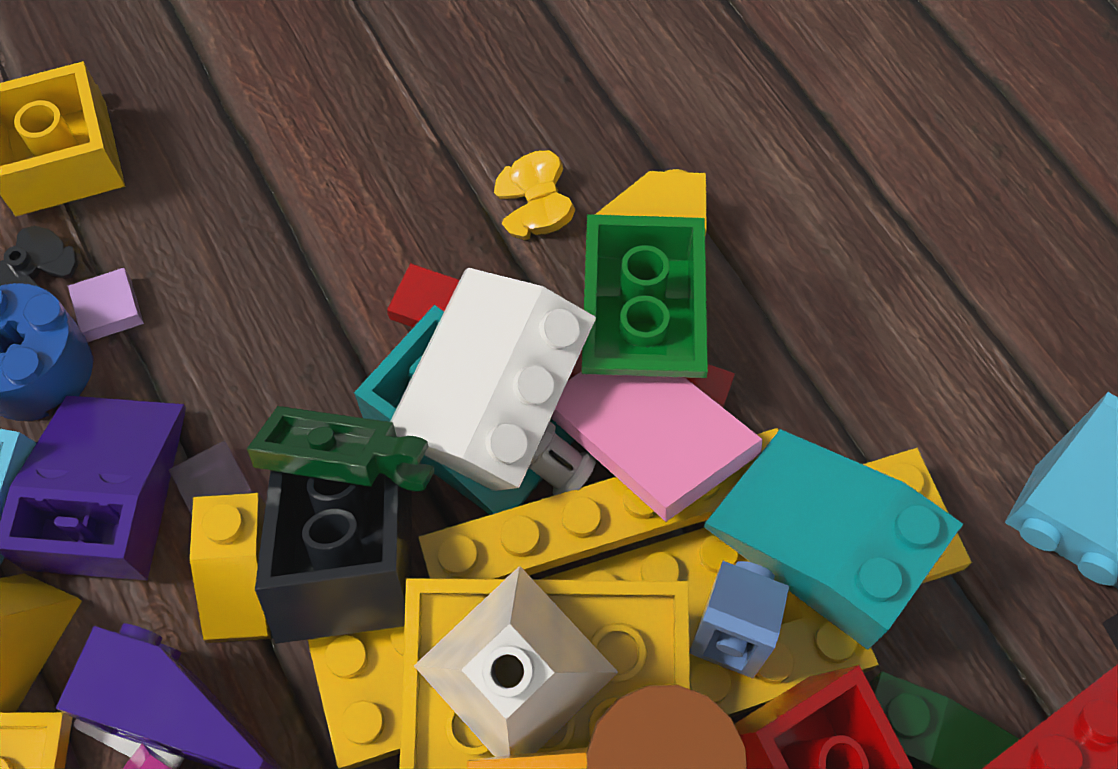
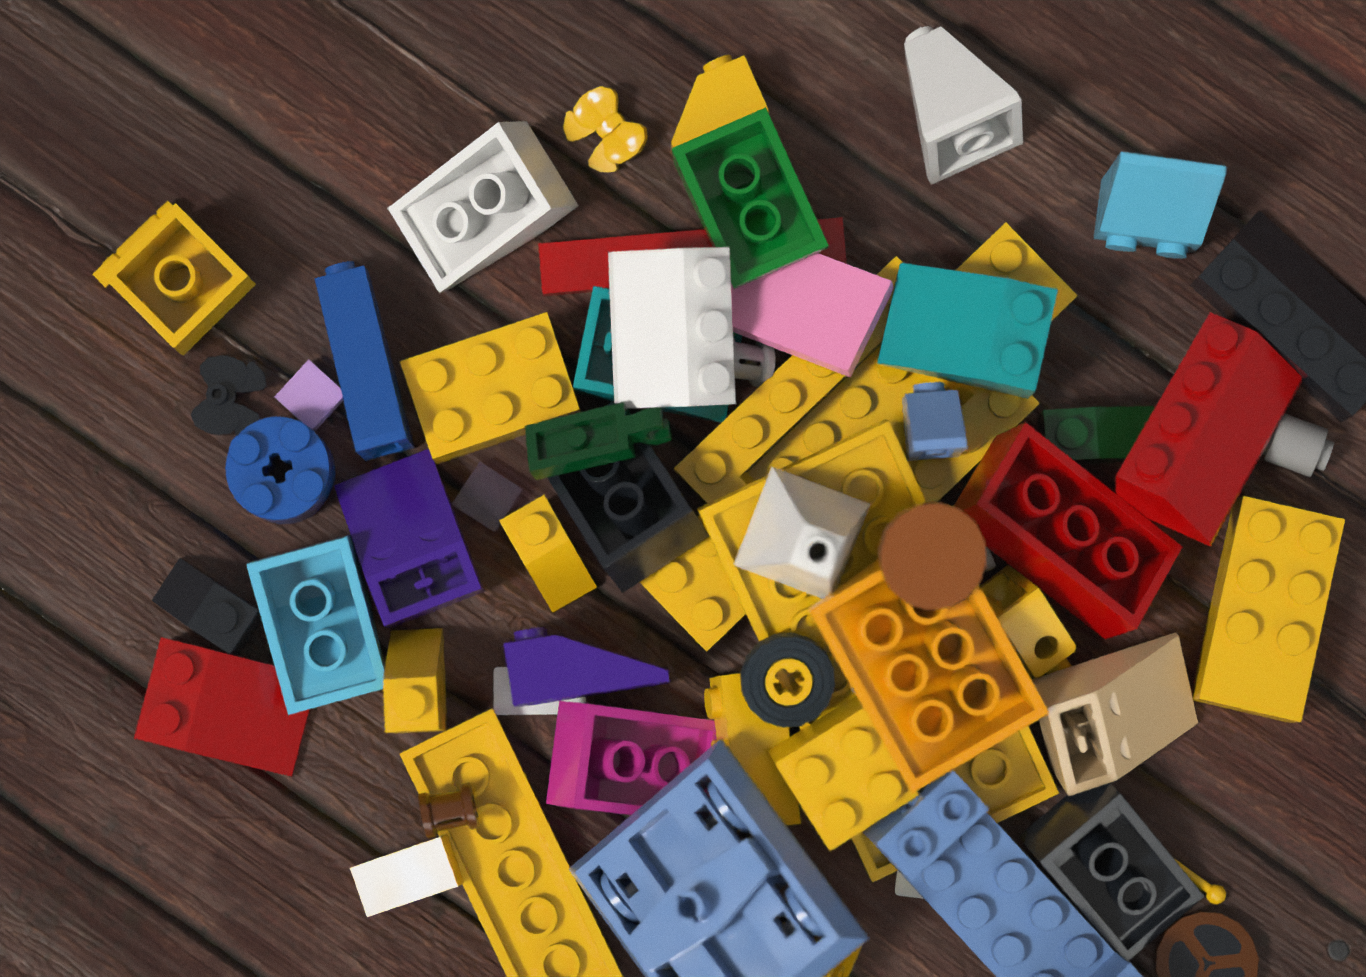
camera: 25 degrees left, 20 degrees up
(161, 295) = (363, 362): none -> blue slope
(263, 354) = (489, 387): none -> yellow brick
(380, 203) = (482, 204): none -> white slope
(914, 320) = (959, 104): none -> white slope

